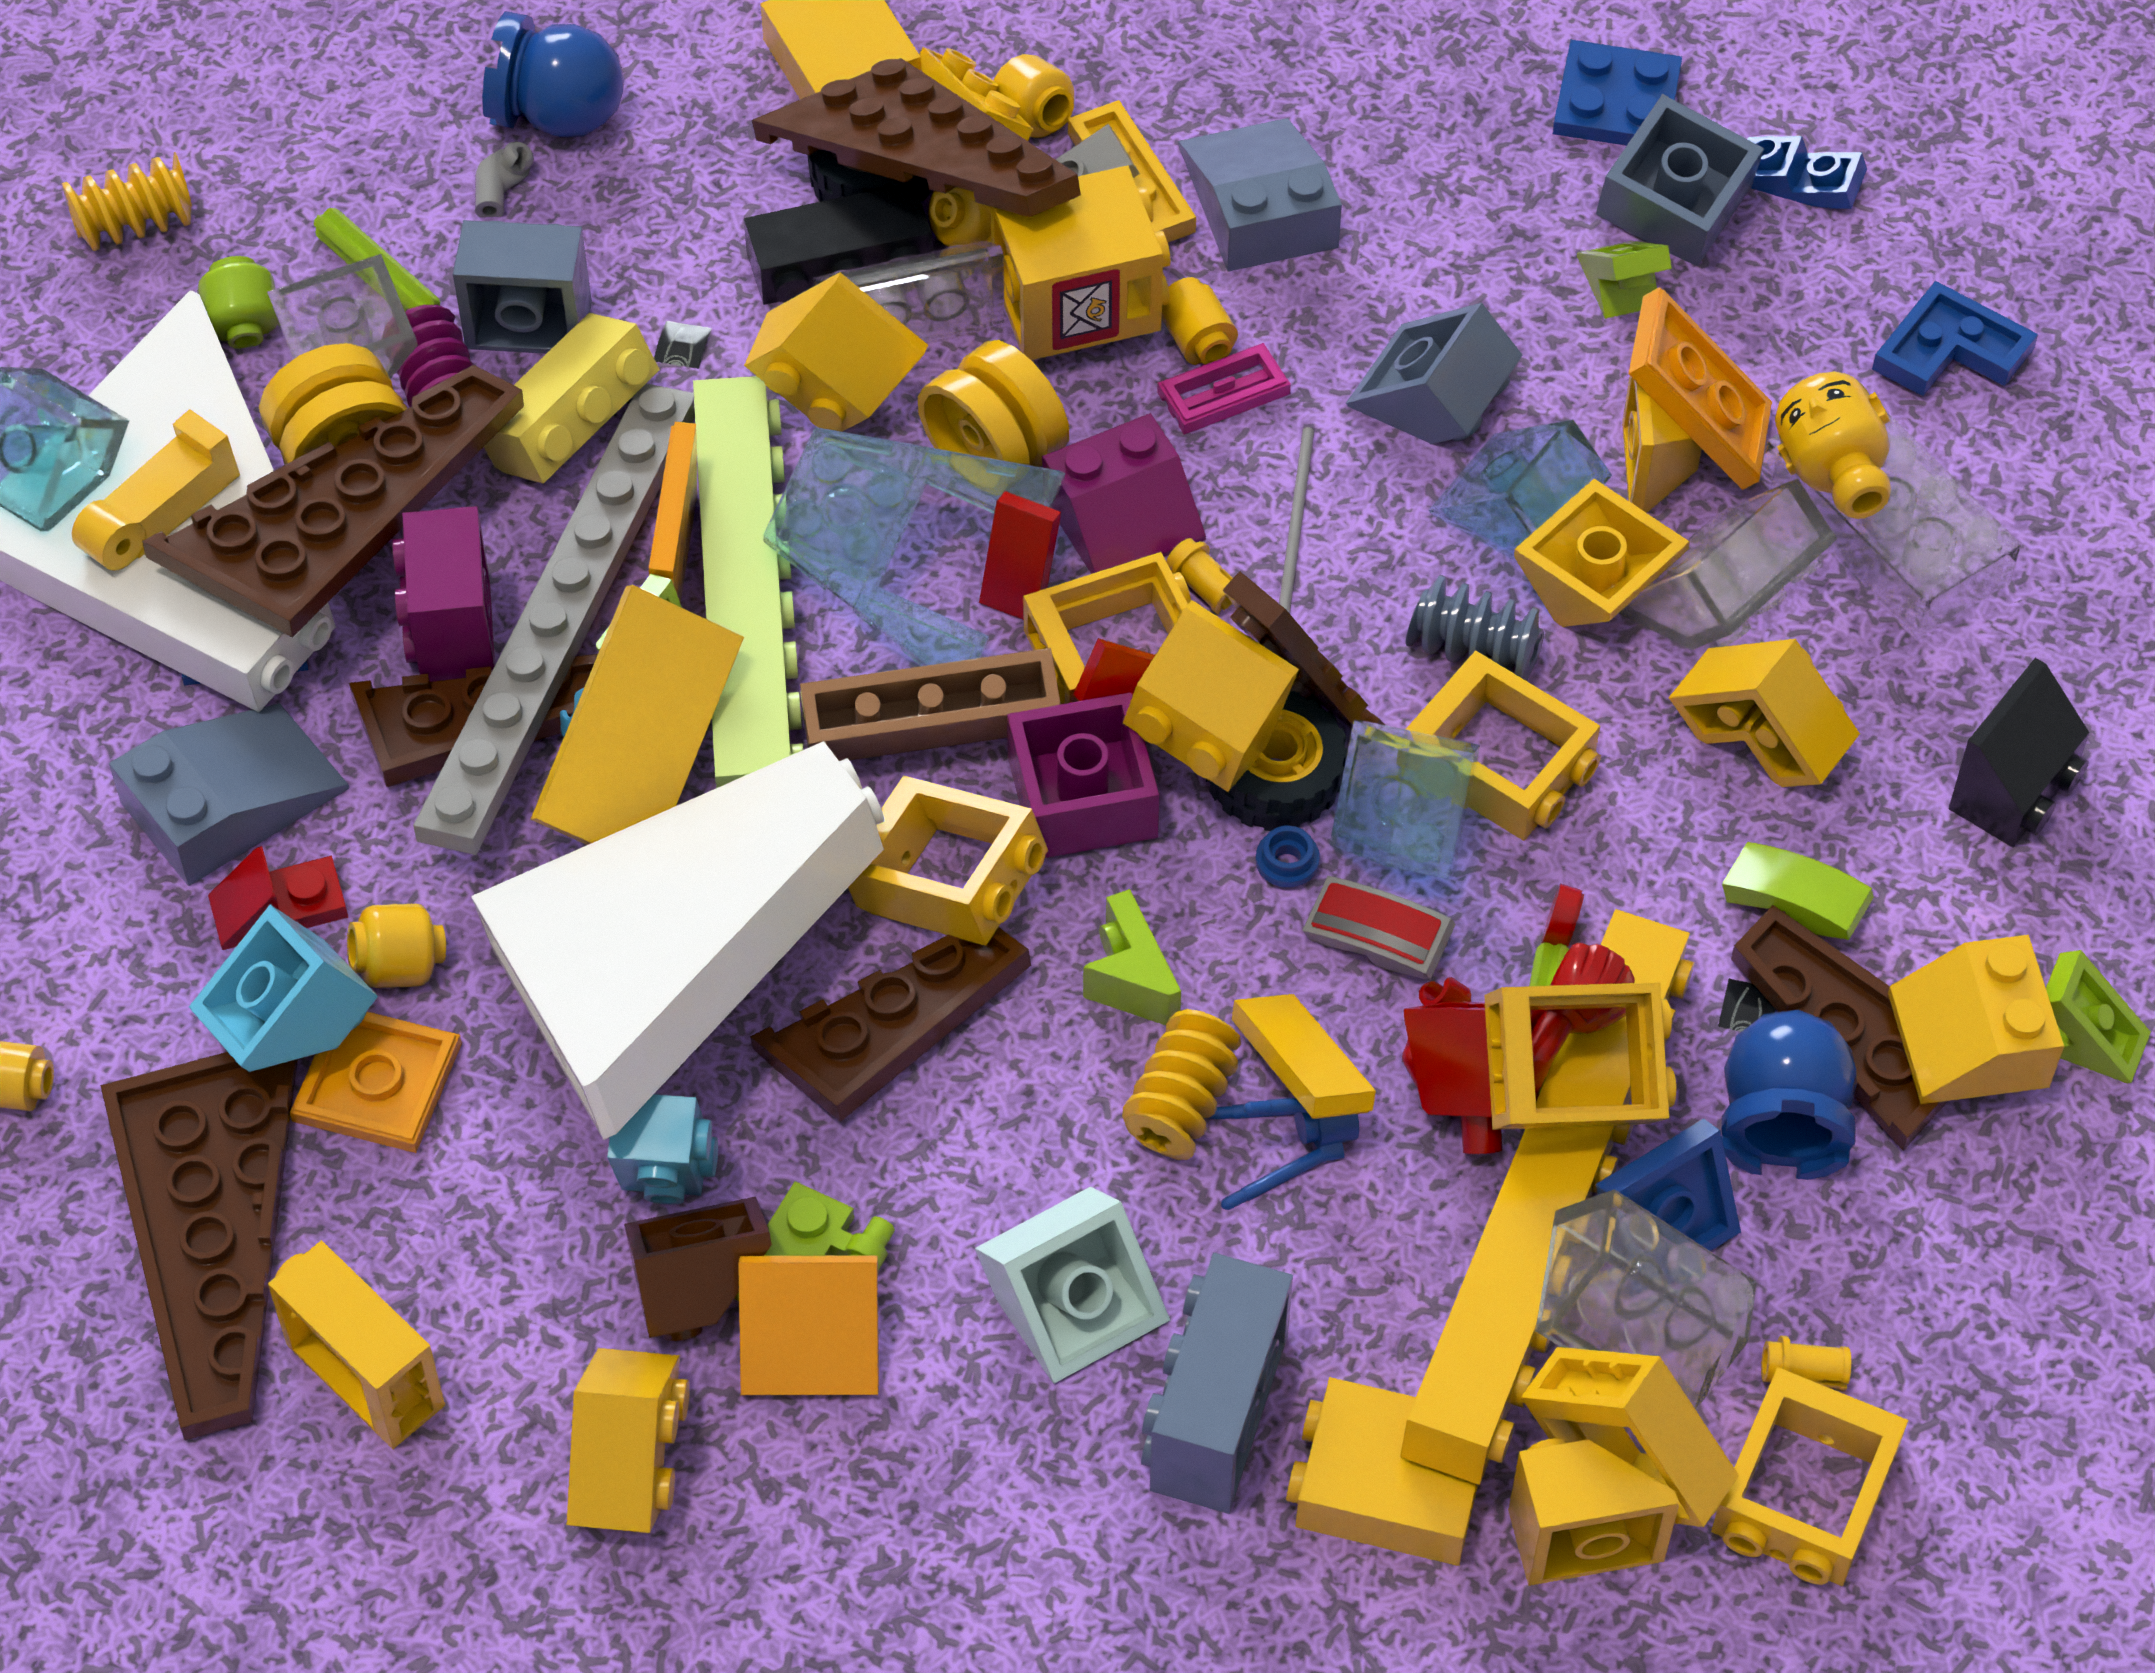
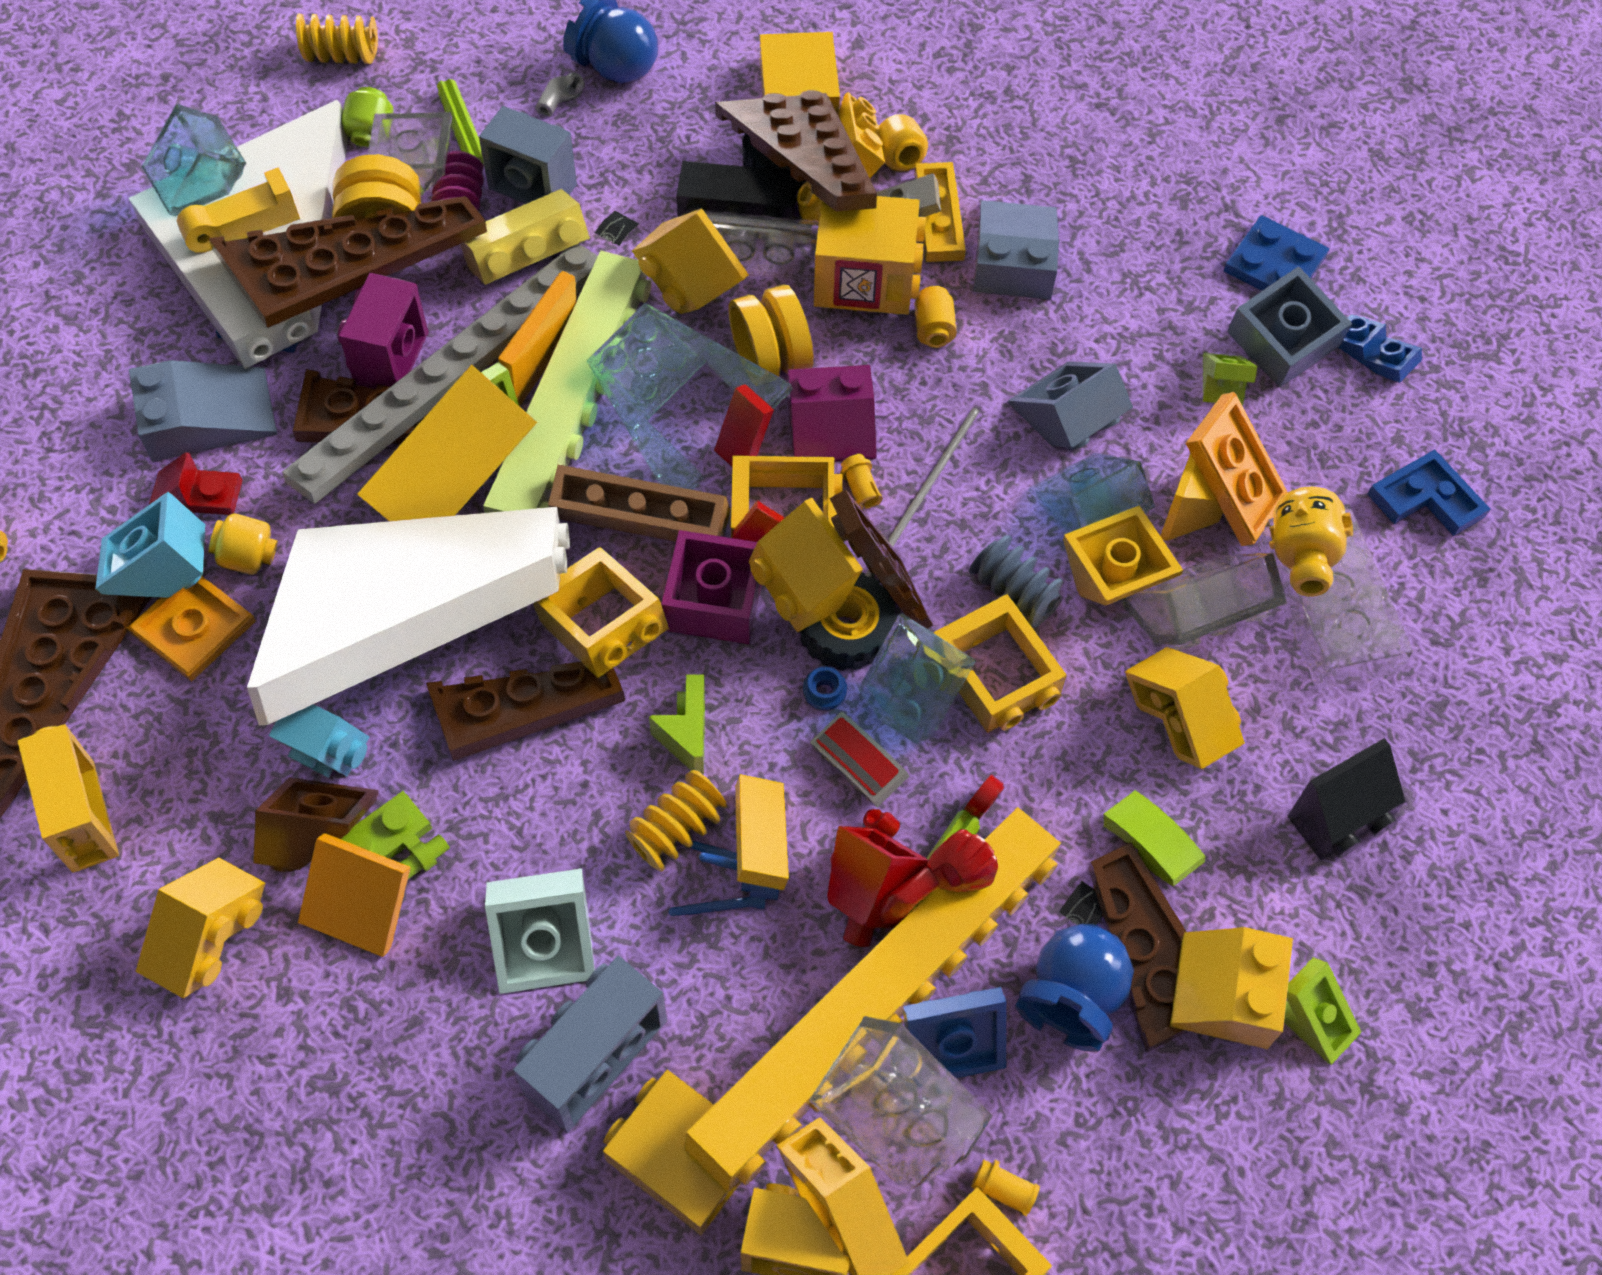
camera: 20 degrees right, 5 degrees up
(1228, 395) = (934, 370): dark pink tile -> none
(1512, 1054) = (974, 948): yellow window -> none

